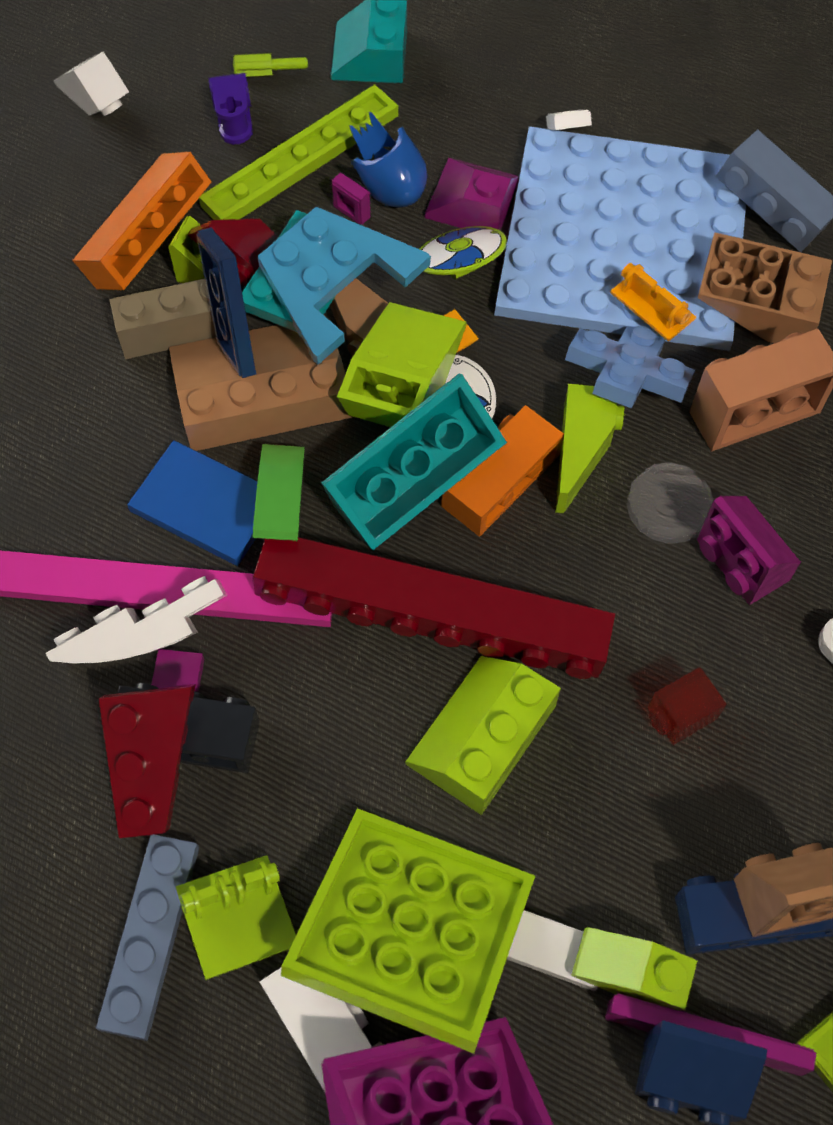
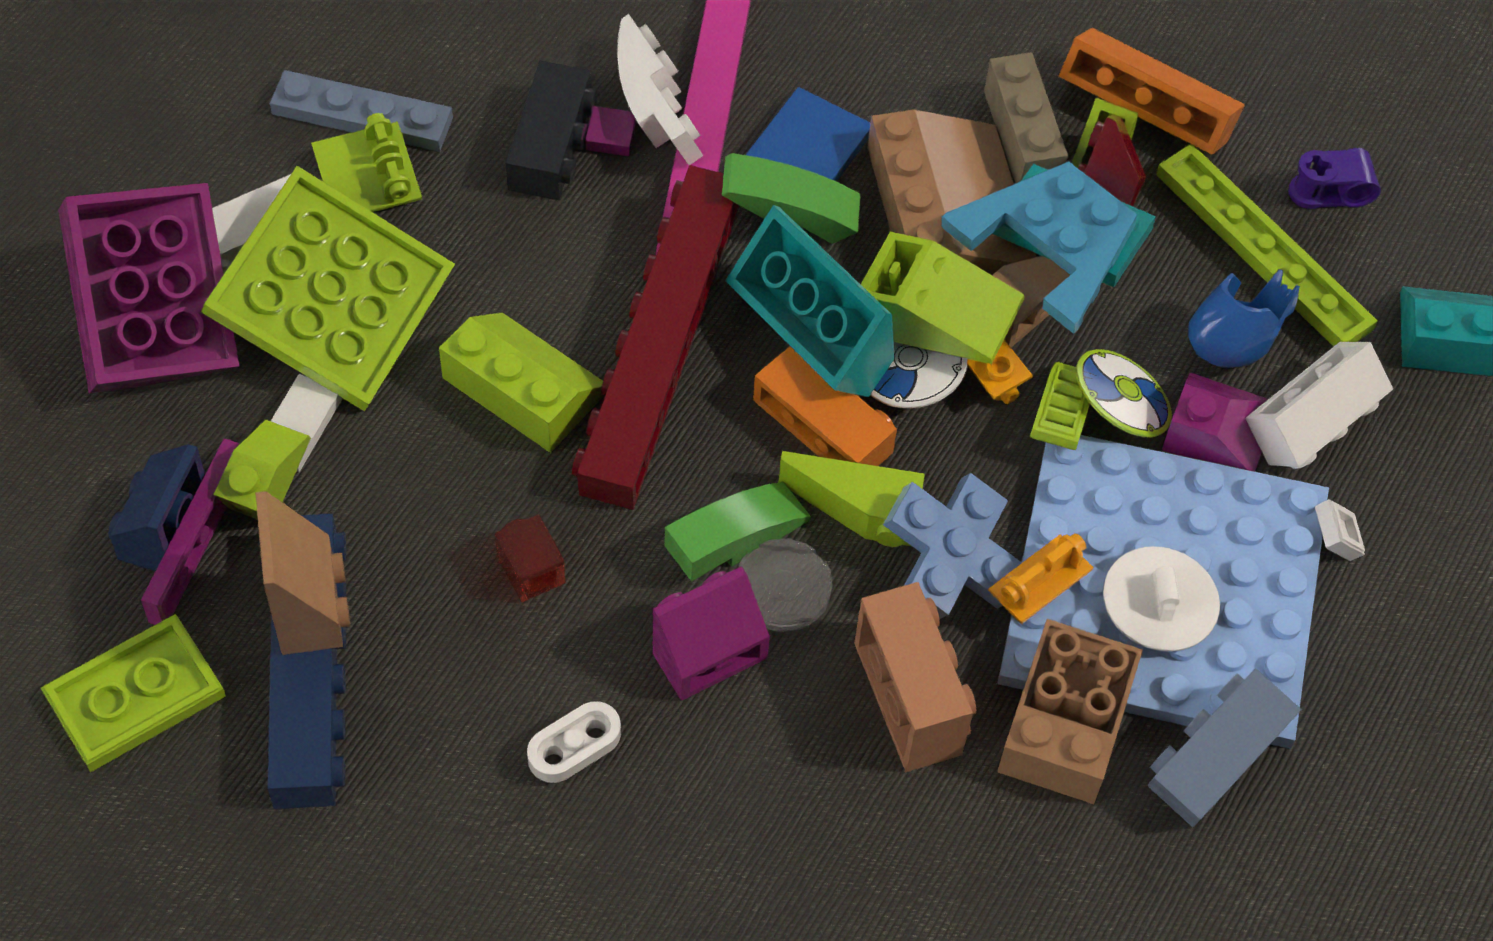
camera: 90 degrees right, 5 degrees down
(93, 85) = (1350, 46): white slope -> none
(144, 751) = (517, 85): dark red wing -> none
(226, 301) = (1001, 128): dark blue tile -> none
(262, 65) = (1408, 216): lime axle -> none
(351, 198) = (1197, 289): magenta tile -> none
(455, 291) = (1061, 404): none -> lime slope
(461, 121) = (1319, 404): none -> white brick
(630, 537) = (733, 528): none -> bright green slope
(655, 227) = (1161, 598): none -> white shield

